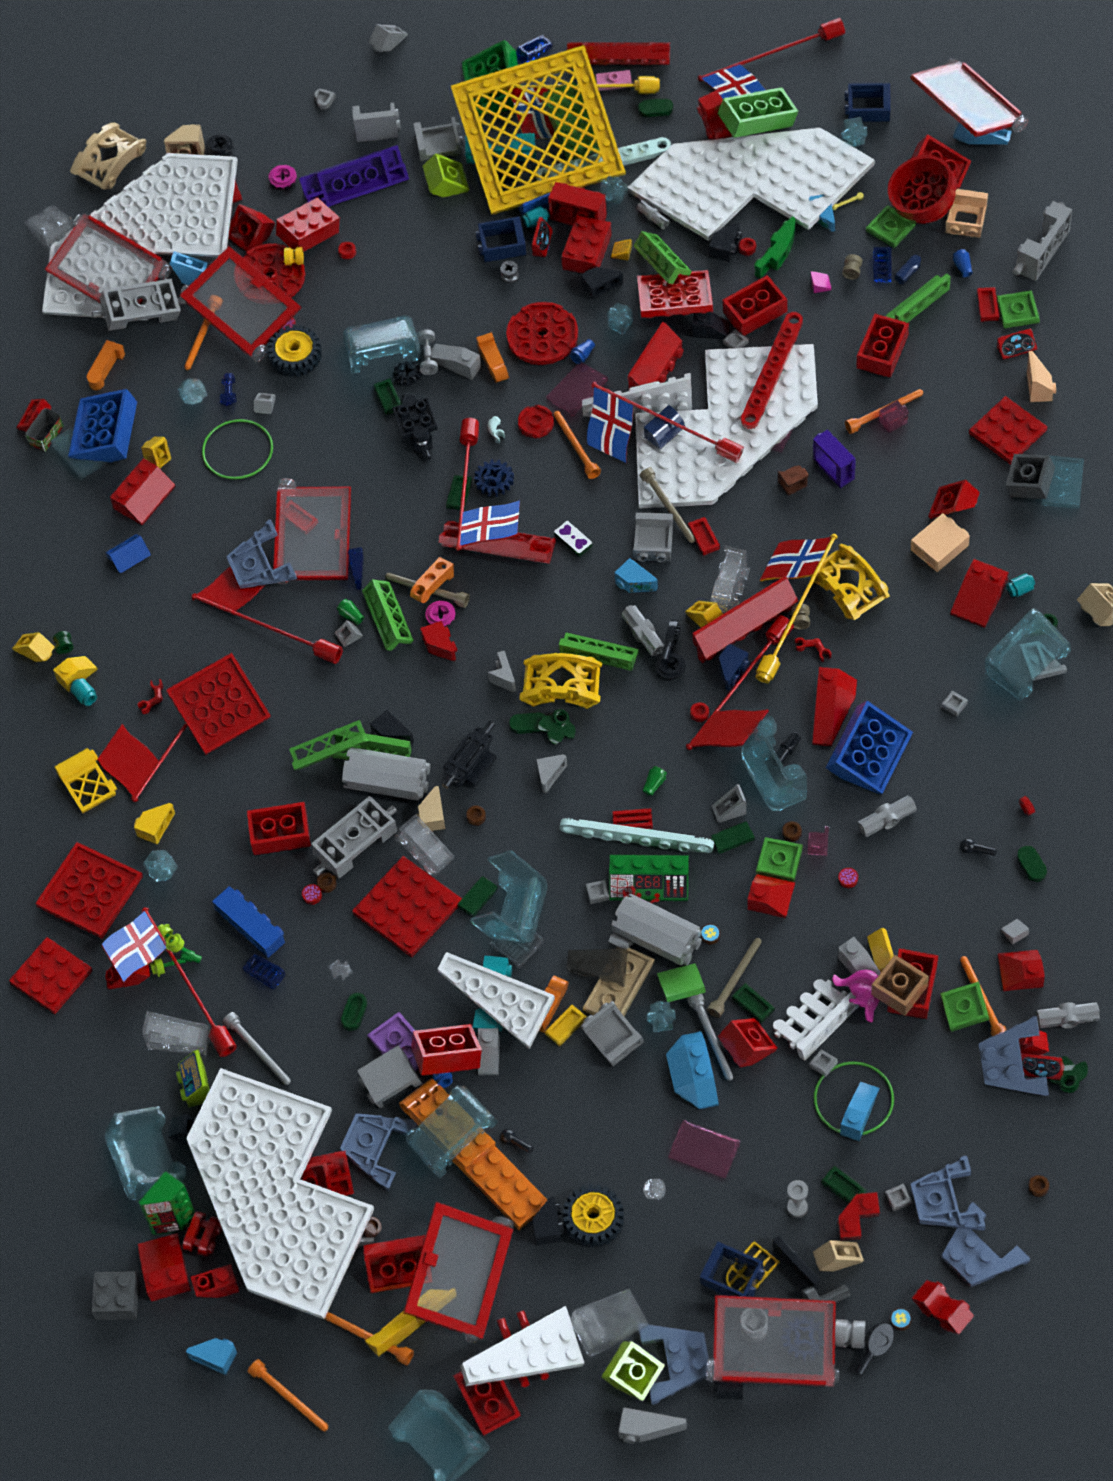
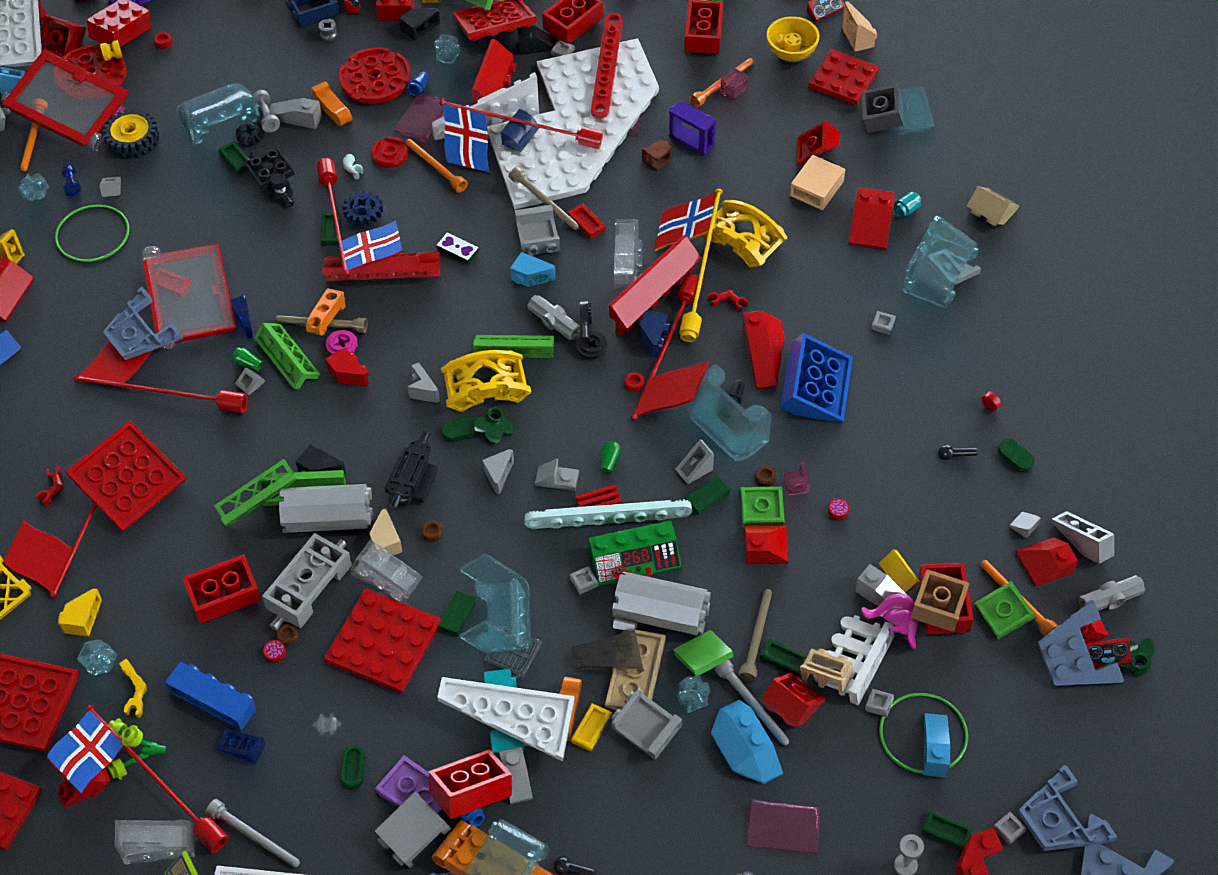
camera: 20 degrees left, 5 degrees down
(191, 901) = (140, 689): none -> yellow piece
(600, 789) = (556, 477): none -> light grey slope
(703, 612) = (610, 288): yellow slope -> none
(710, 934) = (718, 596): tile -> none
(785, 1022) = (827, 668): none -> tan window
(802, 620) = (710, 276): dark tan wheel -> none
(887, 816) = (857, 440): light grey piece -> none
(966, 378) = (792, 38): none -> yellow piece
(1038, 1185) = (1150, 779): reddish brown tile -> none
(1065, 956) = (1086, 537): none -> light grey slope

